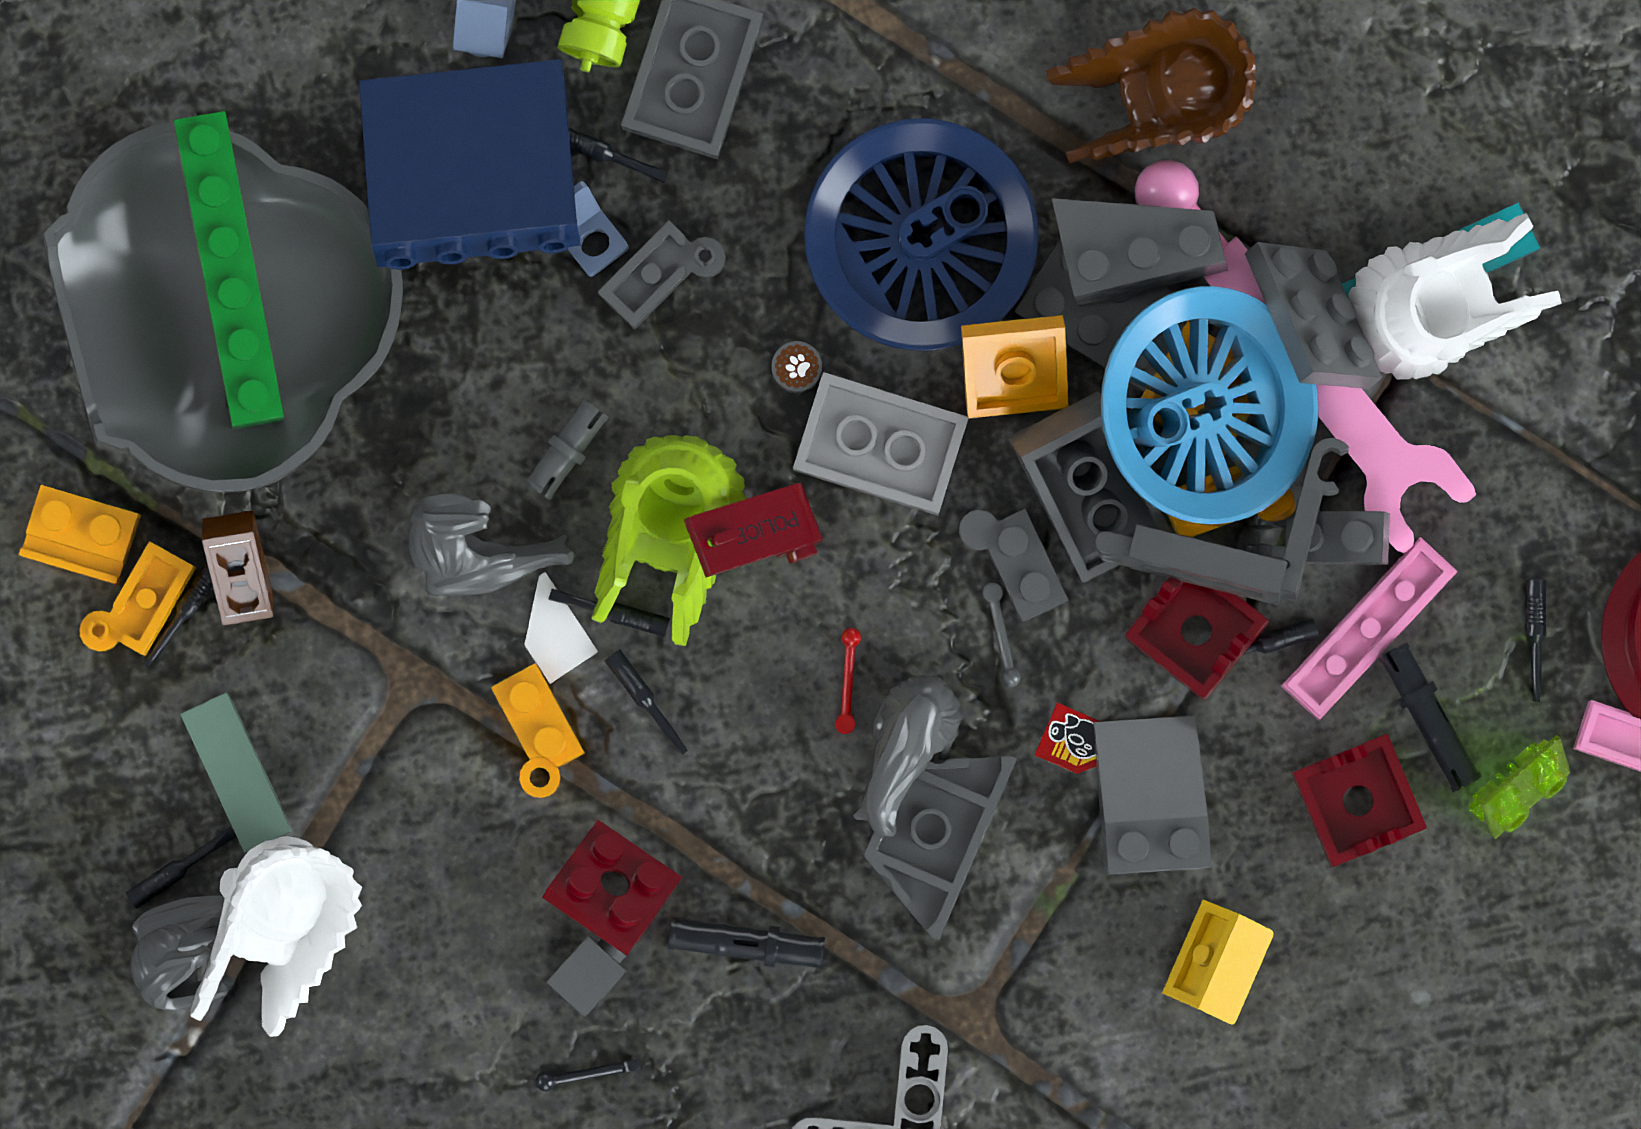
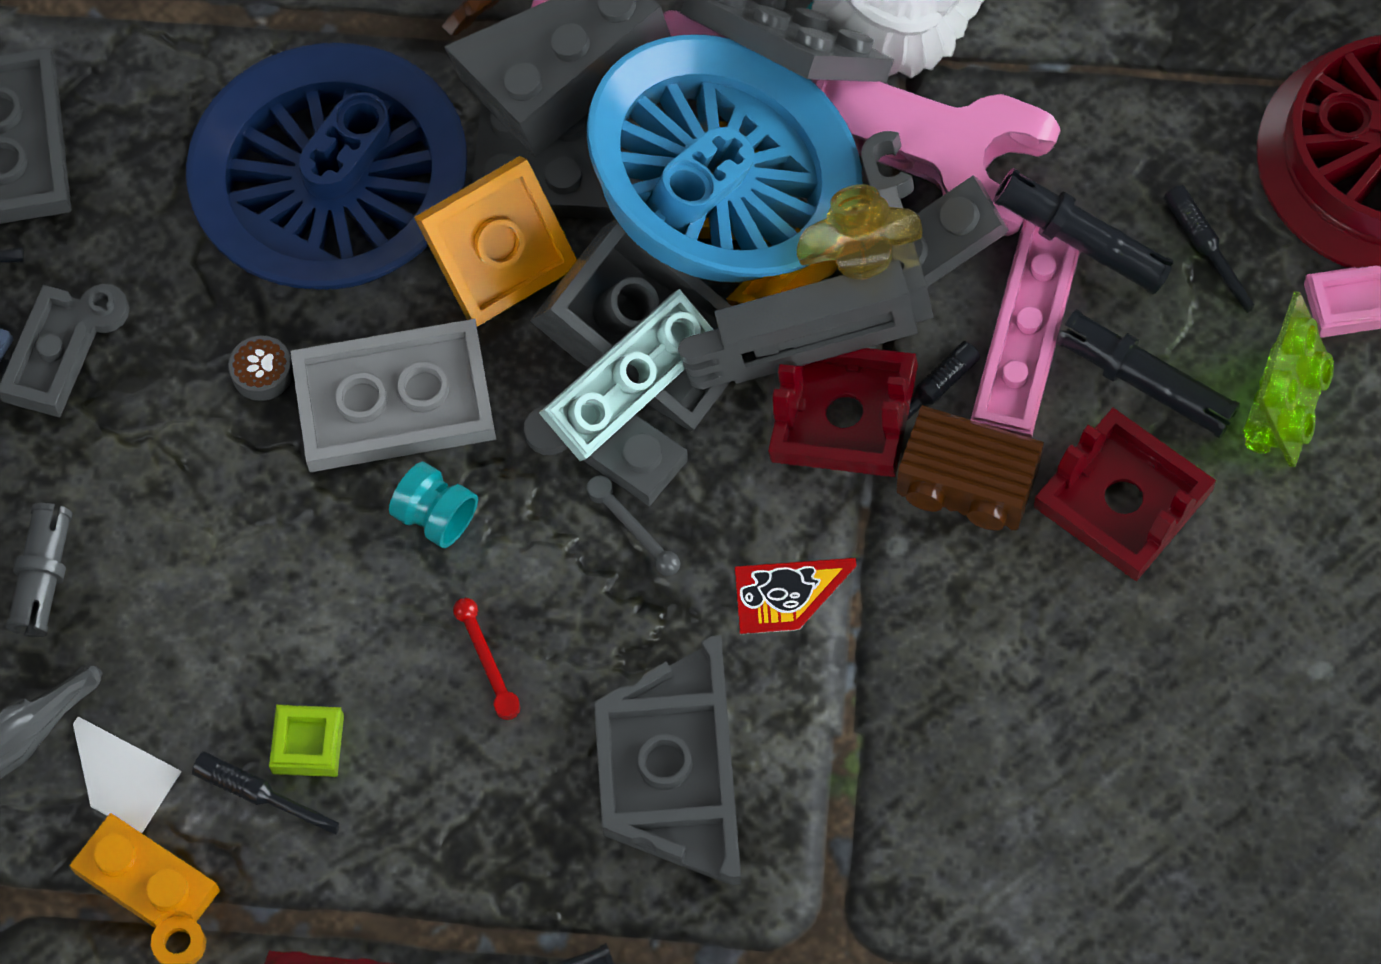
camera: 20 degrees left, 20 degrees down
(619, 613) = (182, 716): black piece -> none
(653, 496) = (195, 564): lime piece -> none
(694, 677) = (306, 740): none -> lime tile
(755, 530) = (293, 526): dark red door -> none
(867, 549) = (431, 503): none -> teal wheel
(917, 721) = (579, 668): dark grey hair -> none
(1026, 538) = (605, 396): none -> light aqua tile
(1151, 795) = (899, 608): dark grey slope -> none
(1218, 962) = (1072, 740): yellow panel -> none
(1259, 725) = (968, 469): none -> reddish brown brick
(1270, 531) = (858, 233): none -> clear yellow plate
(1434, 571) = (1062, 219): none -> black pin

